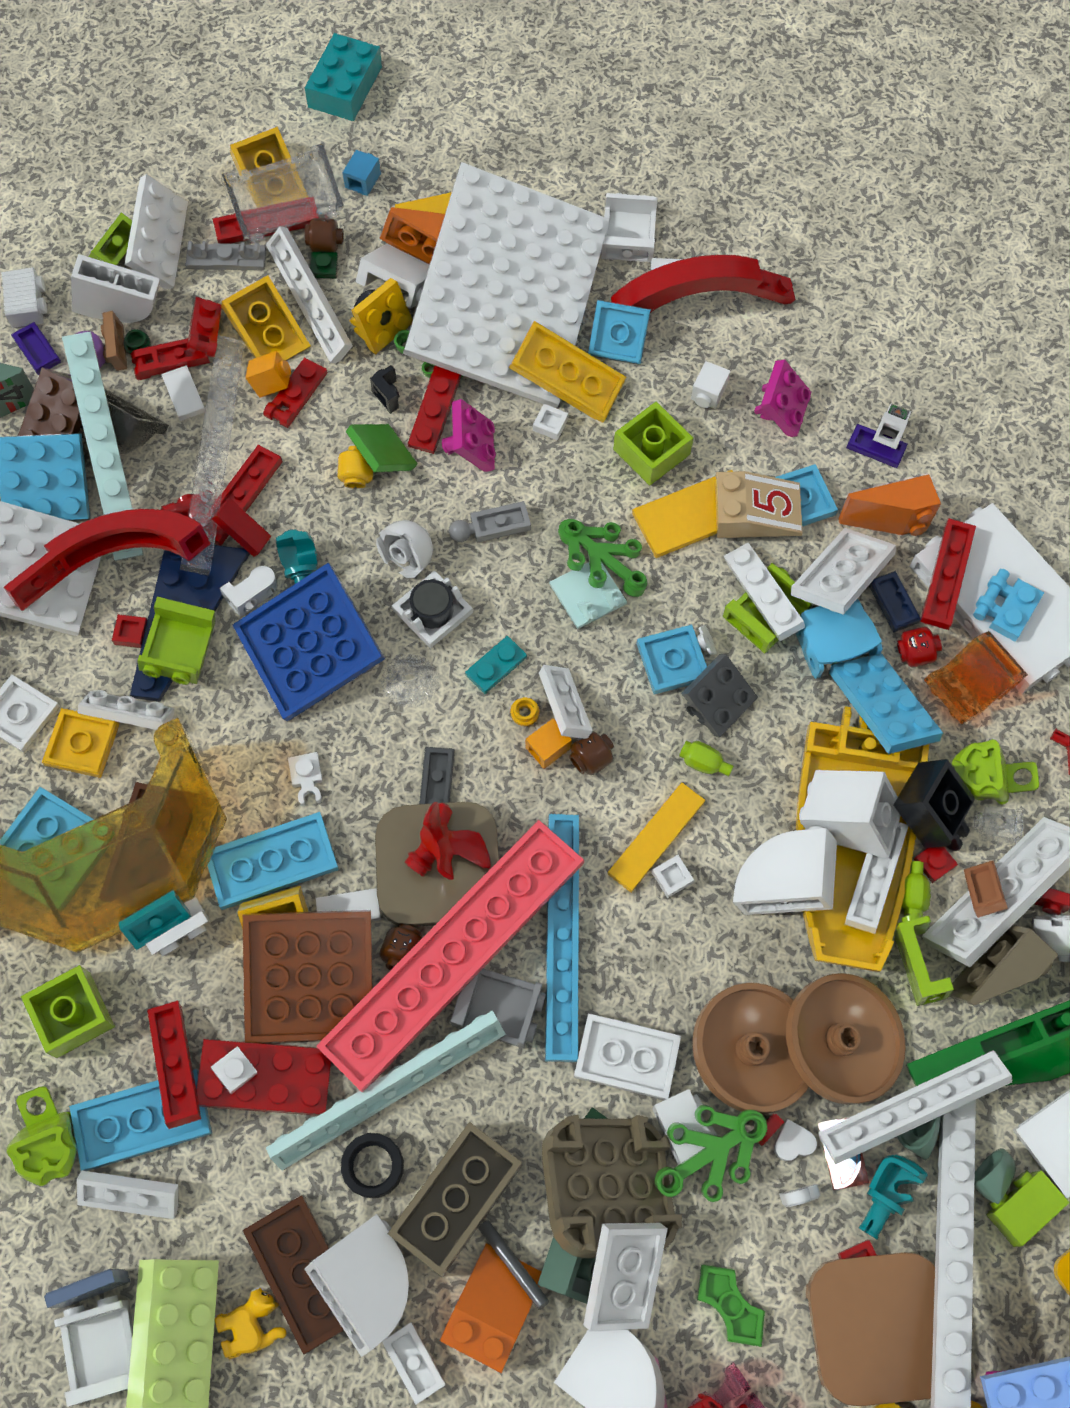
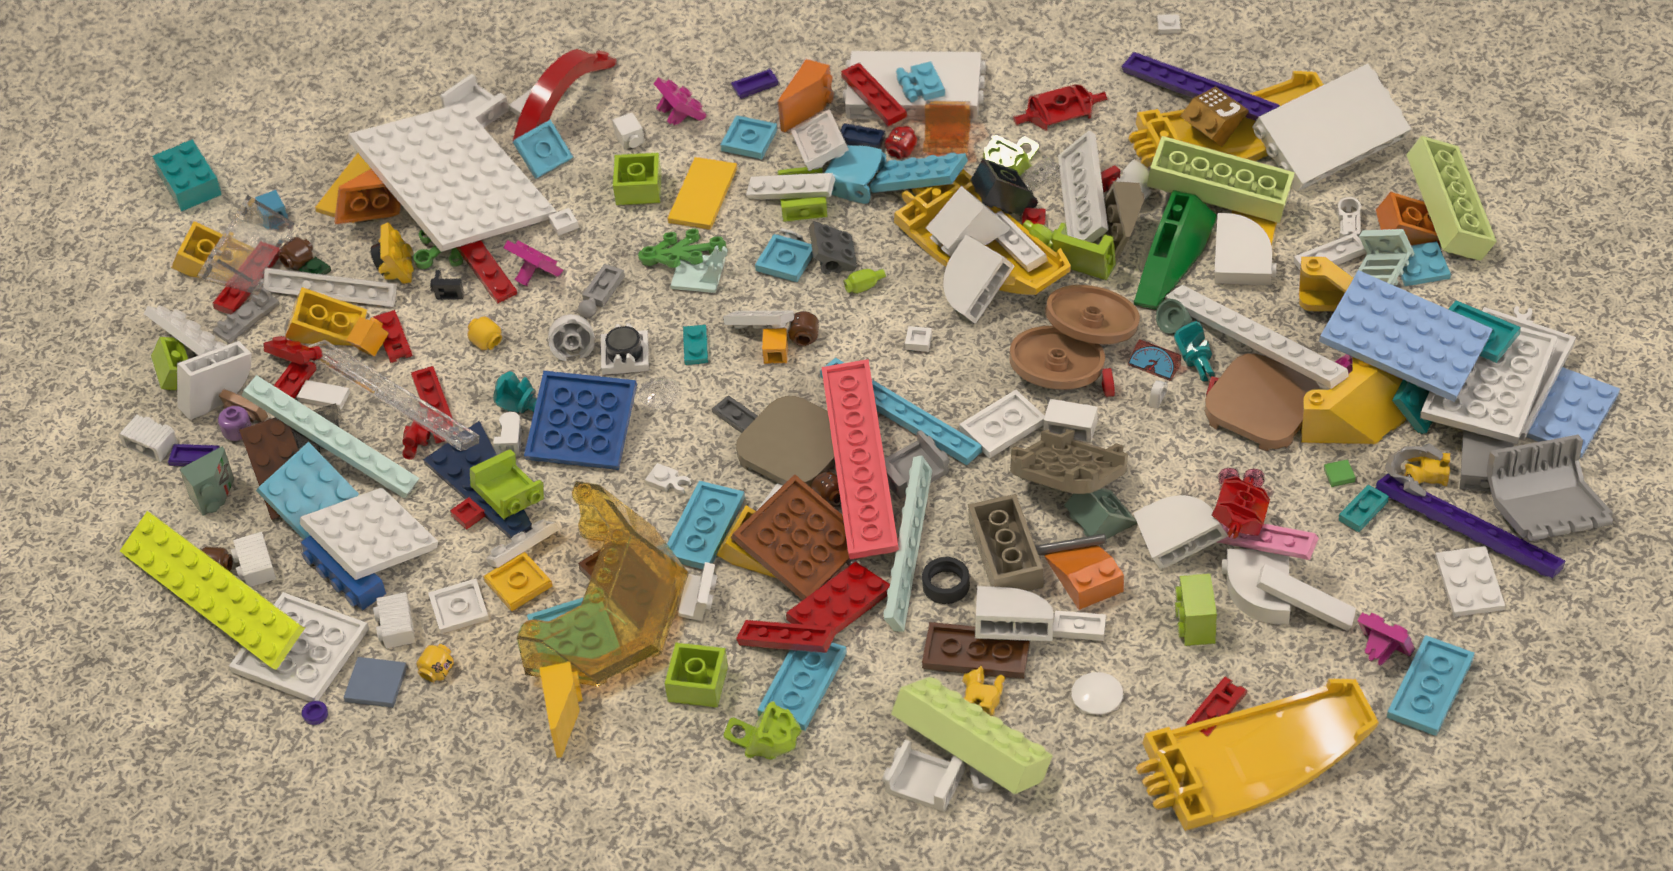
camera: 45 degrees left, 20 degrees down
(86, 1288) = (882, 749): sand blue tile -> none
(102, 536) = (403, 460): red arch -> none
(127, 1194) = (842, 710): white plate -> none
(154, 919) = (684, 593): teal plate -> none
(234, 1070) = (822, 602): white plate -> none
(241, 527) = (463, 410): red tile -> none
(381, 447) = (487, 309): bright green tile -> none
(393, 263) = (372, 224): white panel -> none
(441, 844) = (784, 422): red animal -> none
(525, 703) = (745, 345): yellow plate -> none
(567, 372) = (542, 188): yellow tile -> none
(625, 1276) = (1124, 476): white plate -> none
(656, 837) = (886, 333): yellow tile -> none
(715, 1150) = (1099, 383): bright green plant -> none
(742, 1321) = (1176, 463): bright green tile -> none
(757, 506) = (732, 156): tan slope -> none
(794, 1141) = (1127, 379): white tile -> none
(892, 424) = (752, 64): white leg -> none
(915, 1107) = (1159, 302): white plate -> none
(985, 889) = (1071, 200): nougat tile -> none
(995, 1175) = (1230, 297): sand green piece -> none
(1027, 1207) = (1260, 298): lime brick -> none

